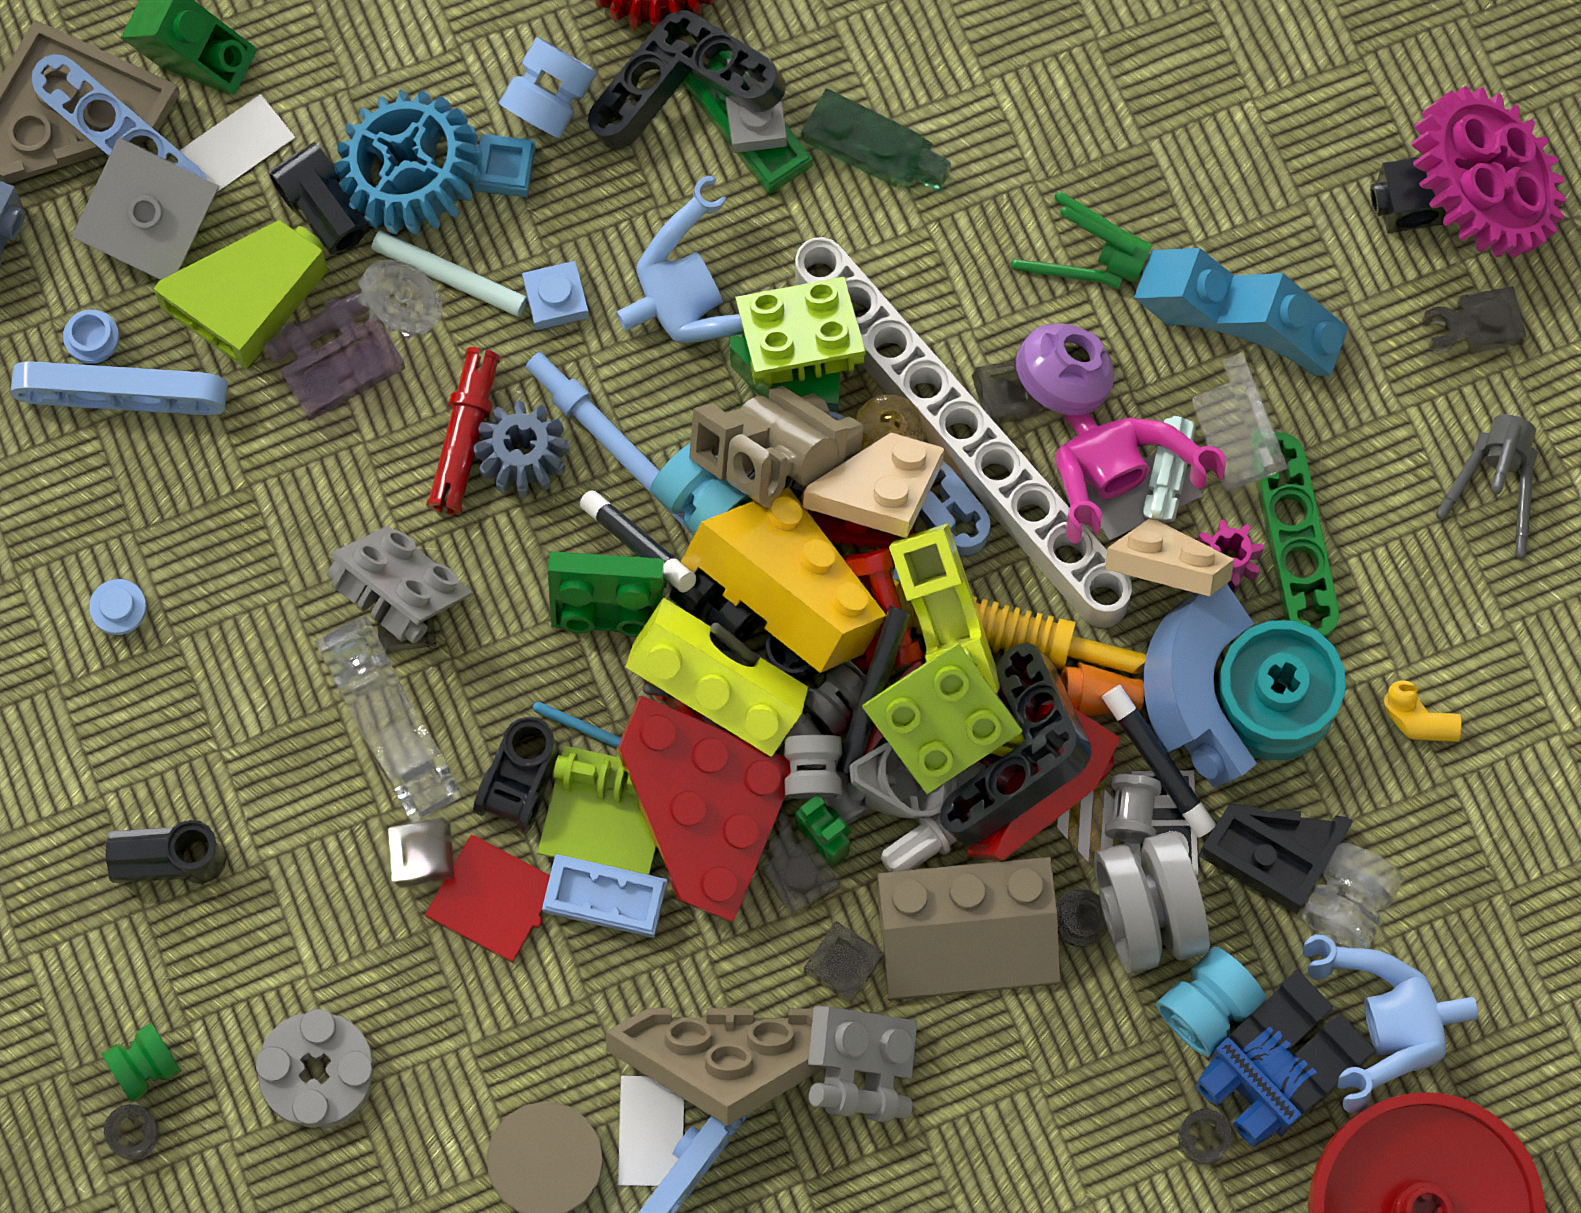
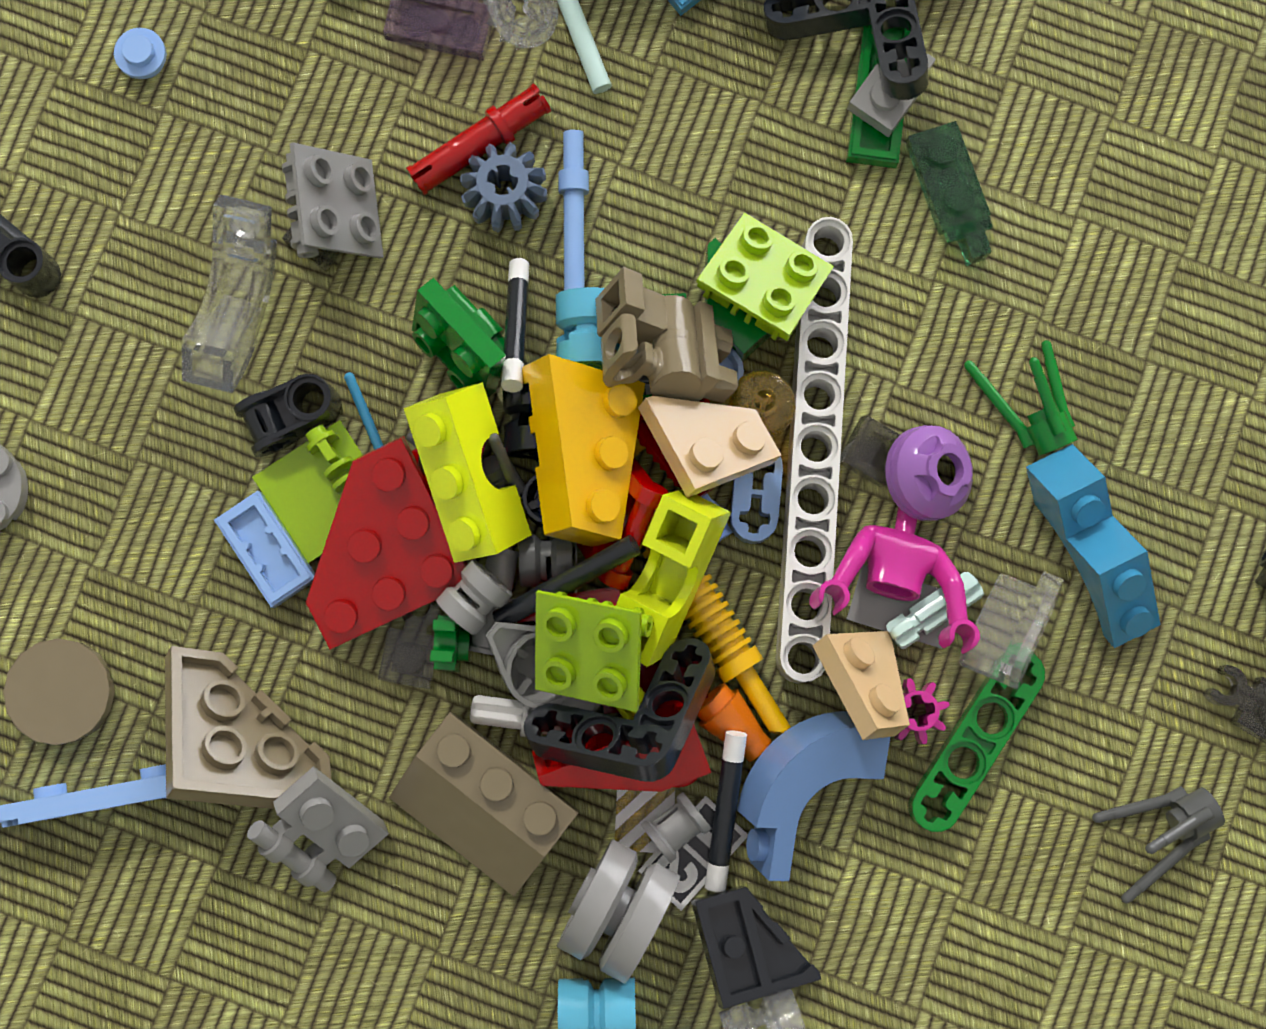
camera: 40 degrees right, 10 degrees up
(421, 852) = (174, 406): clear smoke plate -> none
(491, 899) = (194, 478): red piece -> none
(555, 295) = (631, 101): light blue plate -> none
(648, 1131) = (138, 741): white sticker -> none
(682, 288) = (718, 173): light blue piece -> none
(843, 962) = (379, 745): clear smoke plate -> none
(1080, 918) = (568, 866): clear smoke plate -> none
(1289, 659) = (888, 849): teal wheel -> none
(1415, 720) = (935, 948): yellow arm -> none

